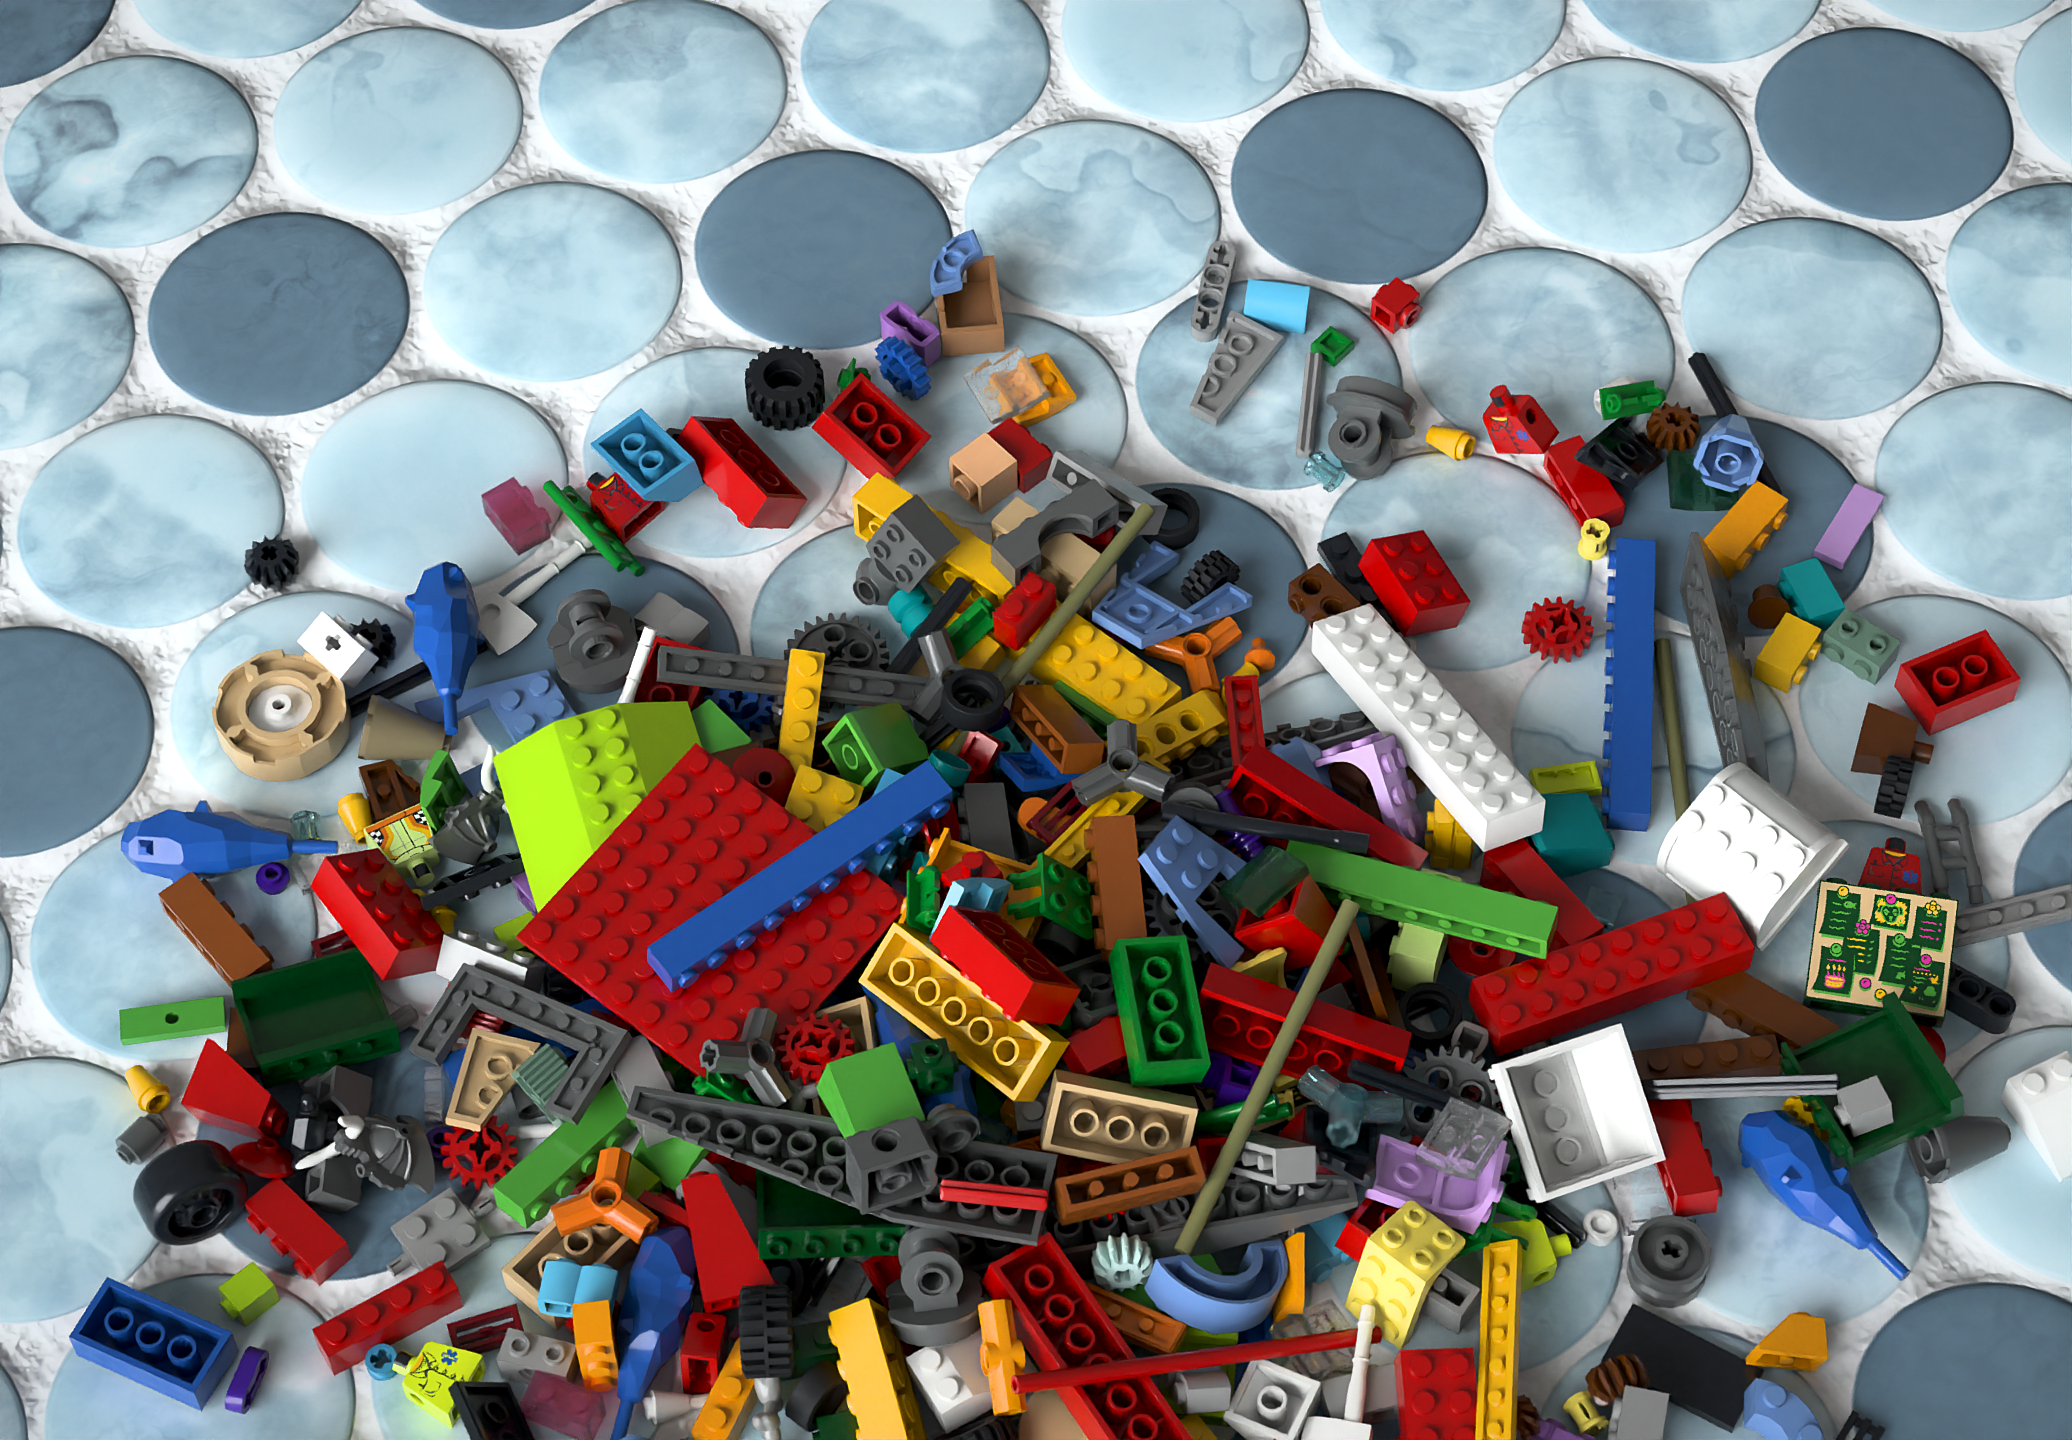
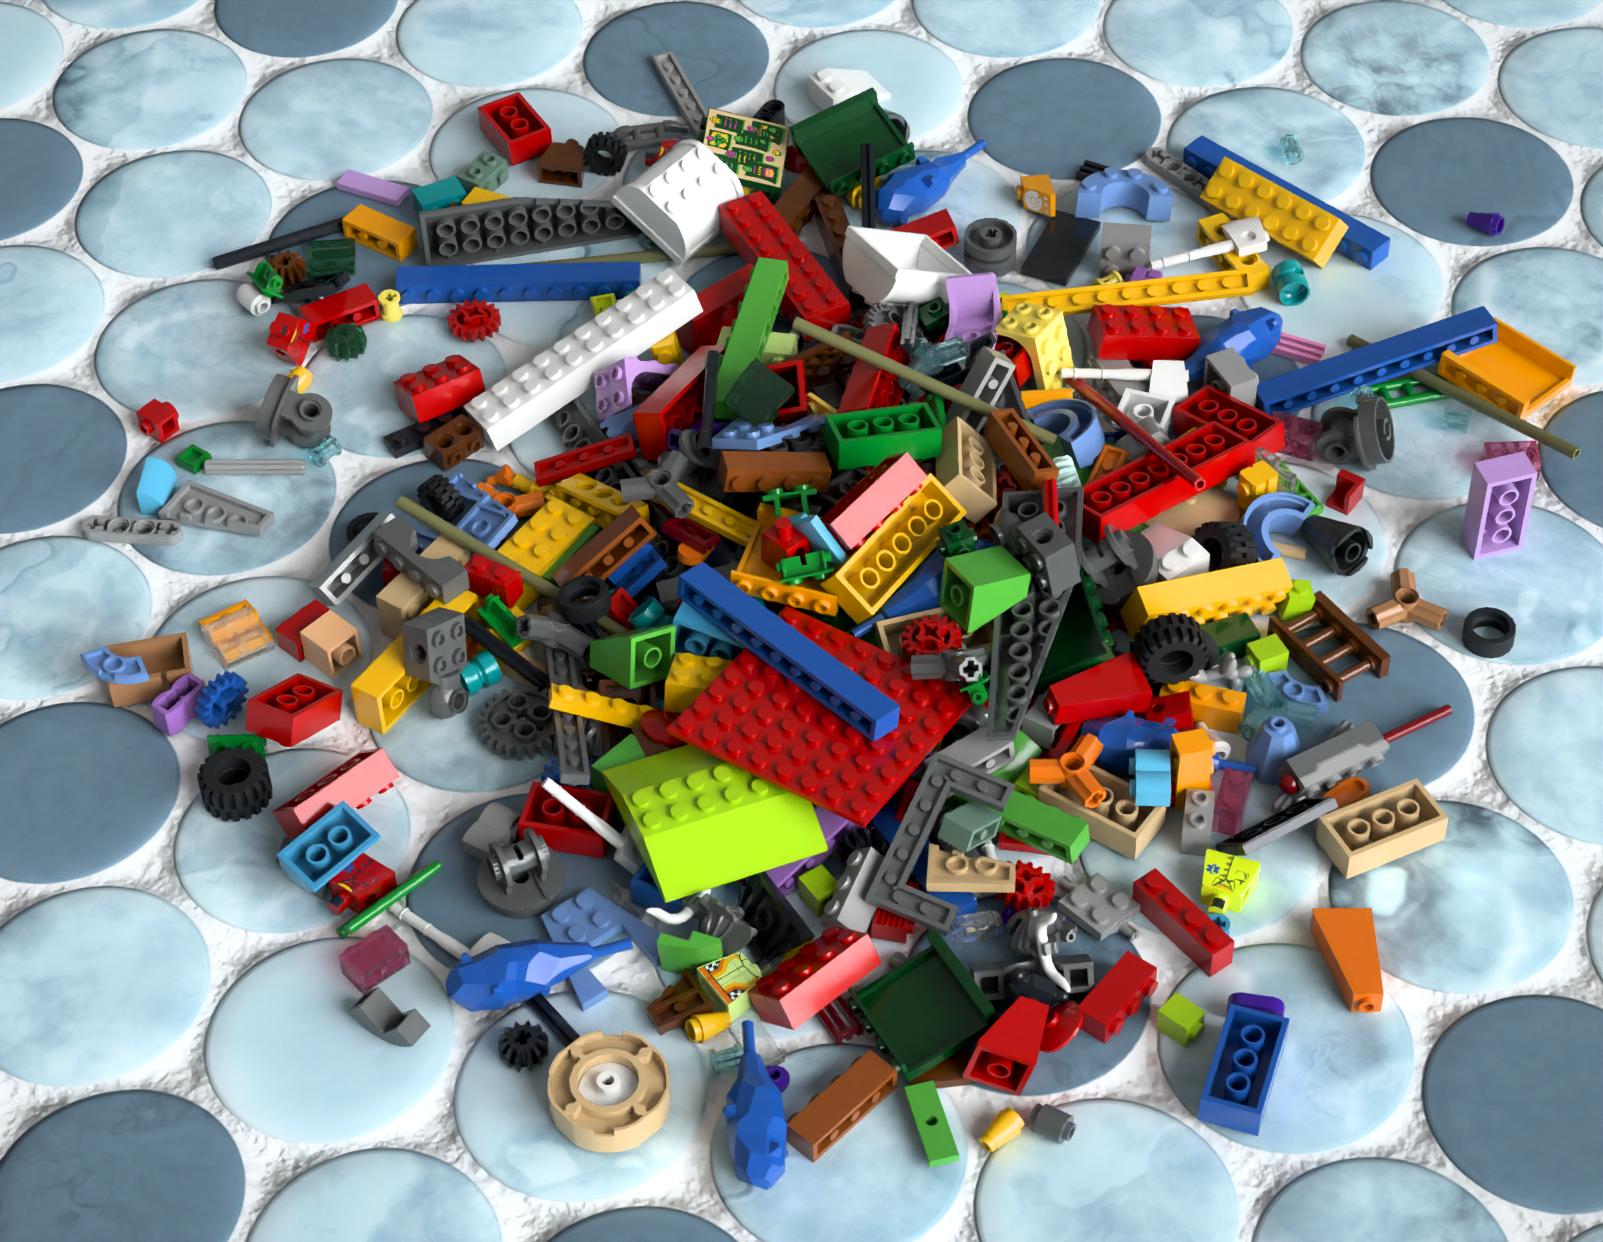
camera: 95 degrees left, 10 degrees down
(190, 1192) = (1111, 1053): black wheel -> none
(271, 562) = (430, 1137): black gear -> none
(338, 649) = (534, 1060): white brick -> none
(399, 733) = (622, 1003): dark tan cone -> none
(436, 527) = (386, 1021): none -> dark grey brick
(485, 1333) = (1194, 879): dark red tile -> none
(1001, 1356) = (1162, 519): light orange piece -> none
(1463, 1139) = (947, 300): clear slope -> none
(1527, 492) = (345, 341): none -> clear green gear
(1610, 1378) = (1086, 261): reddish brown gear -> none
(1729, 454) = (318, 226): medium blue cone -> none
(1863, 1106) = (880, 135): light grey brick -> none

